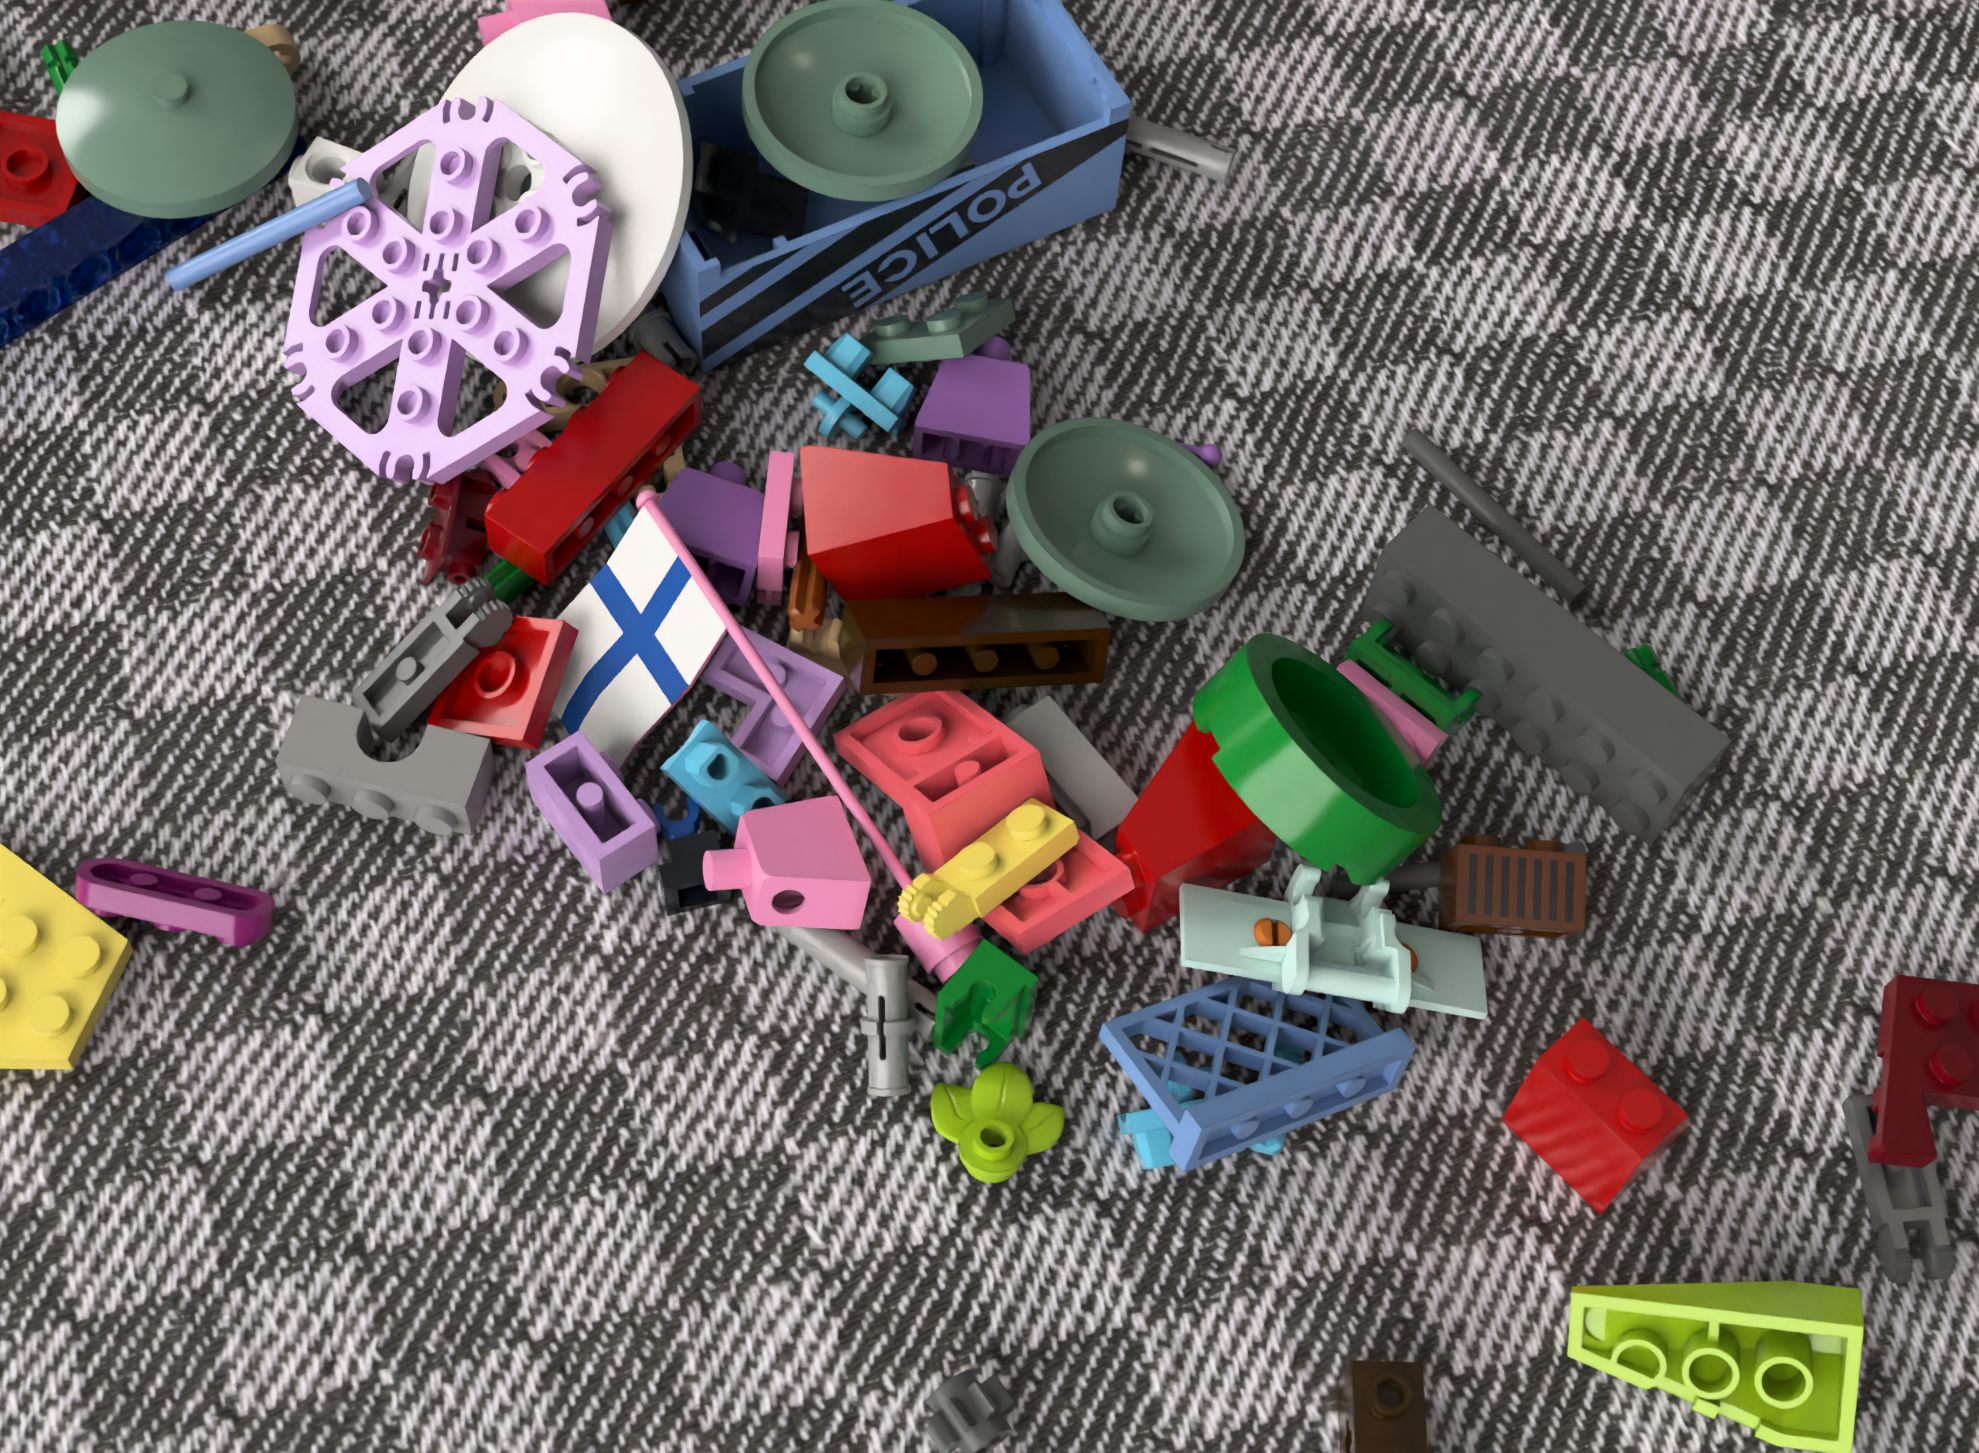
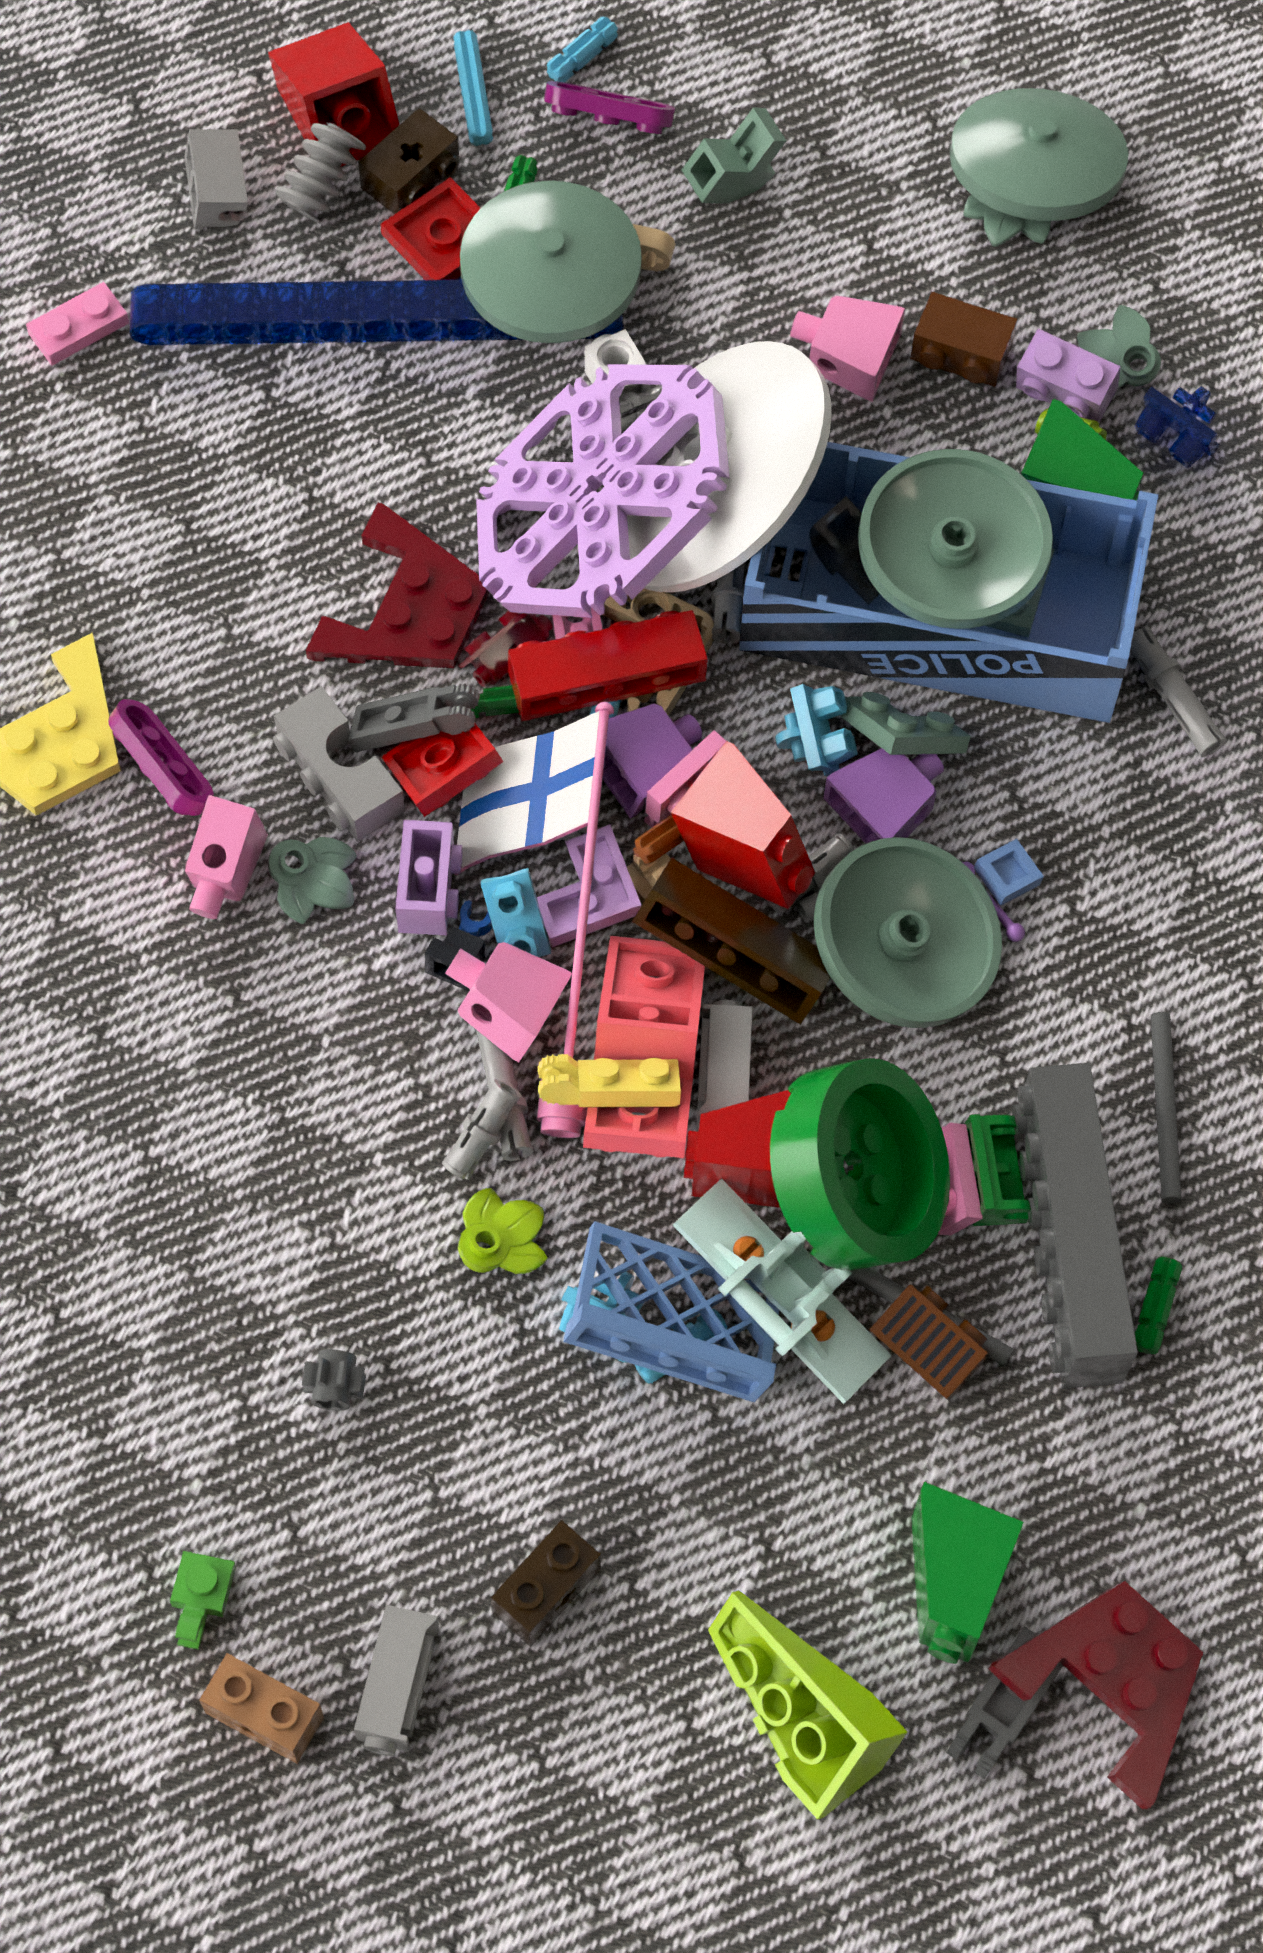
camera: 45 degrees right, 5 degrees up
(269, 234) = (539, 377): medium blue bar -> none
(337, 550) = (424, 610): none -> dark red wing
(343, 931) = (223, 854): none -> bright pink torso
(466, 900) = (317, 881): none -> sand green plate
(985, 997) = (545, 1152): green hinge -> none
(1157, 400) = (1008, 872): none -> medium blue plate
(1594, 1116) = (856, 1506): red slope -> none
(1758, 1090) = (958, 1568): none -> green slope

